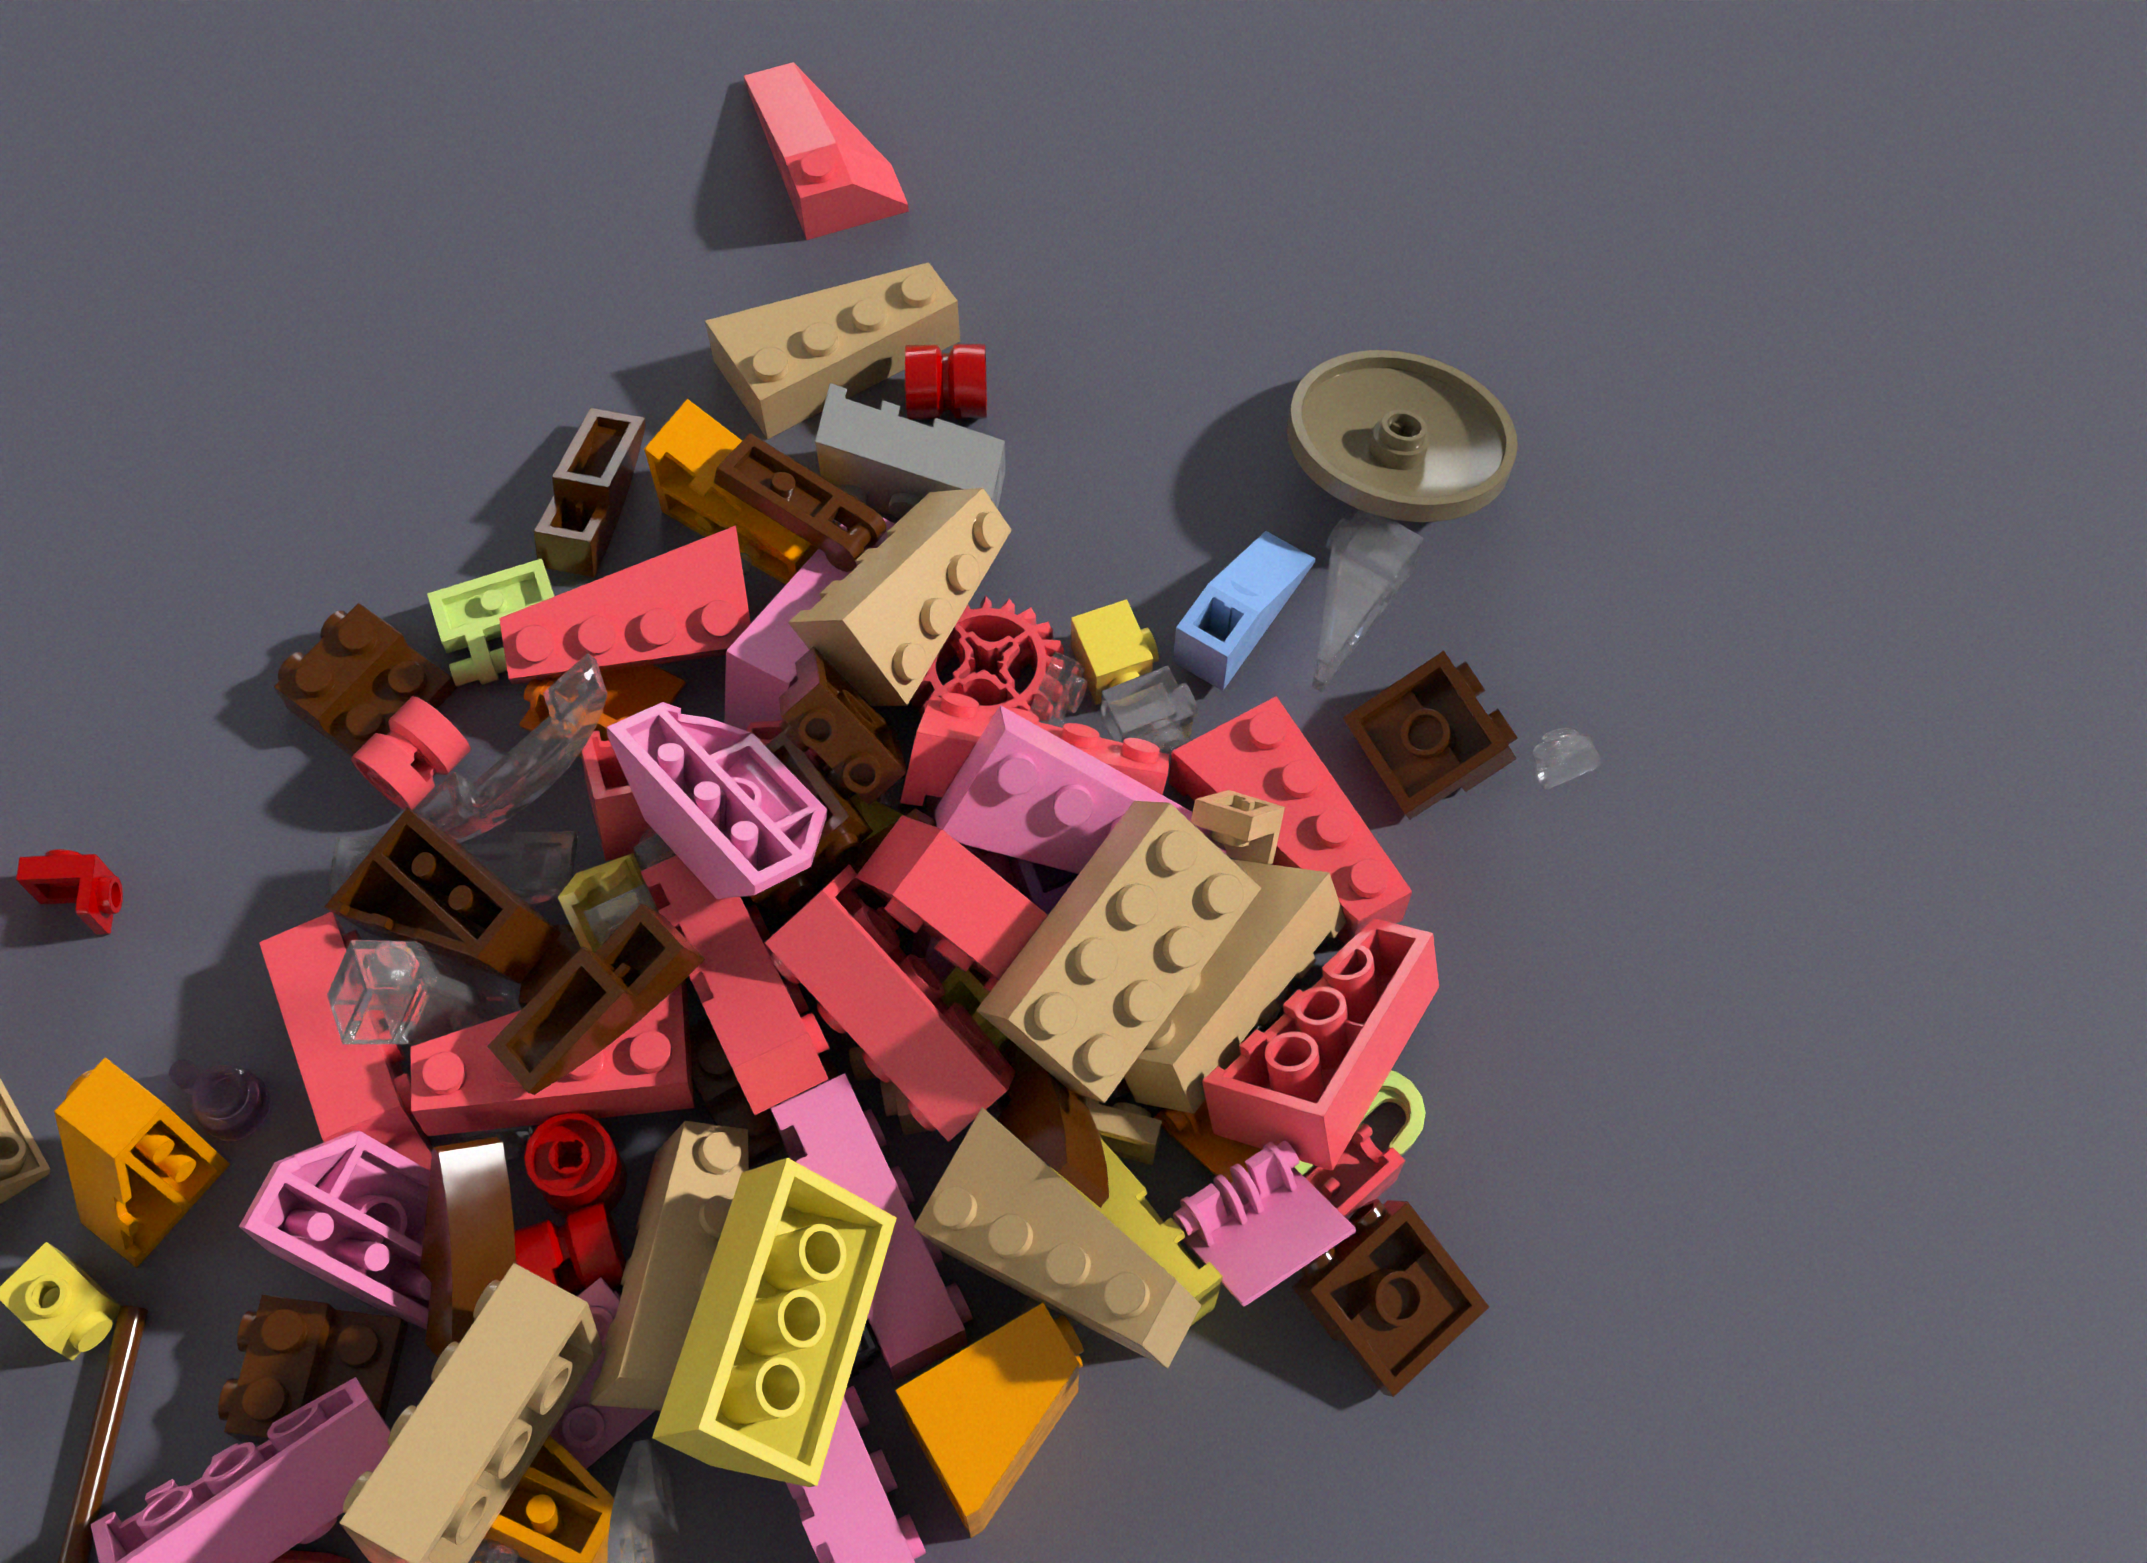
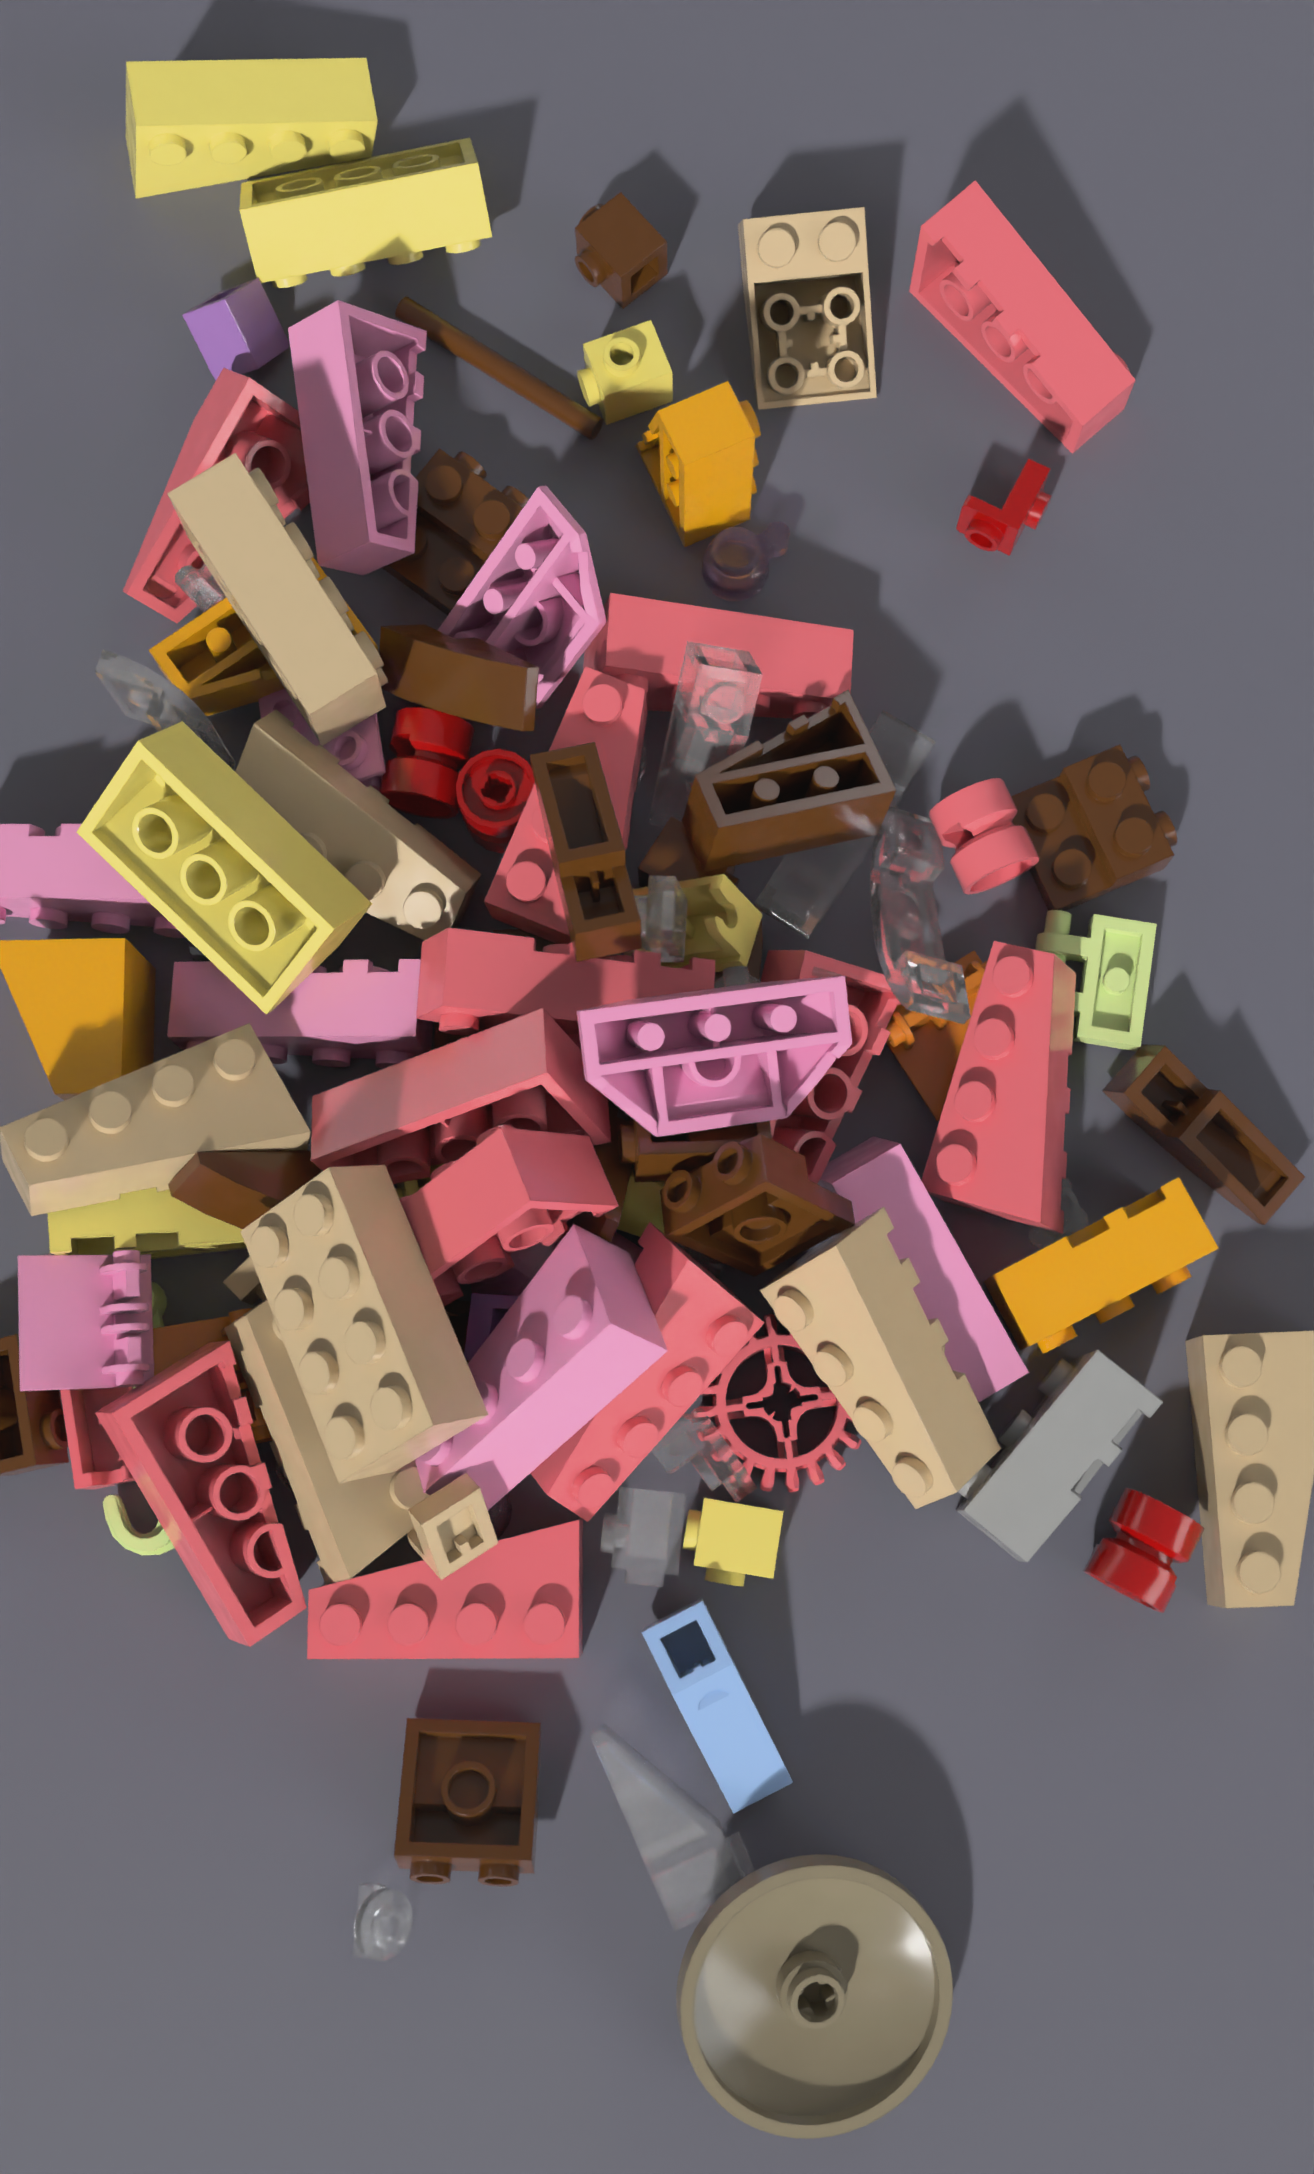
camera: 125 degrees right, 15 degrees up
(800, 501) = (1042, 1302): reddish brown plate -> none

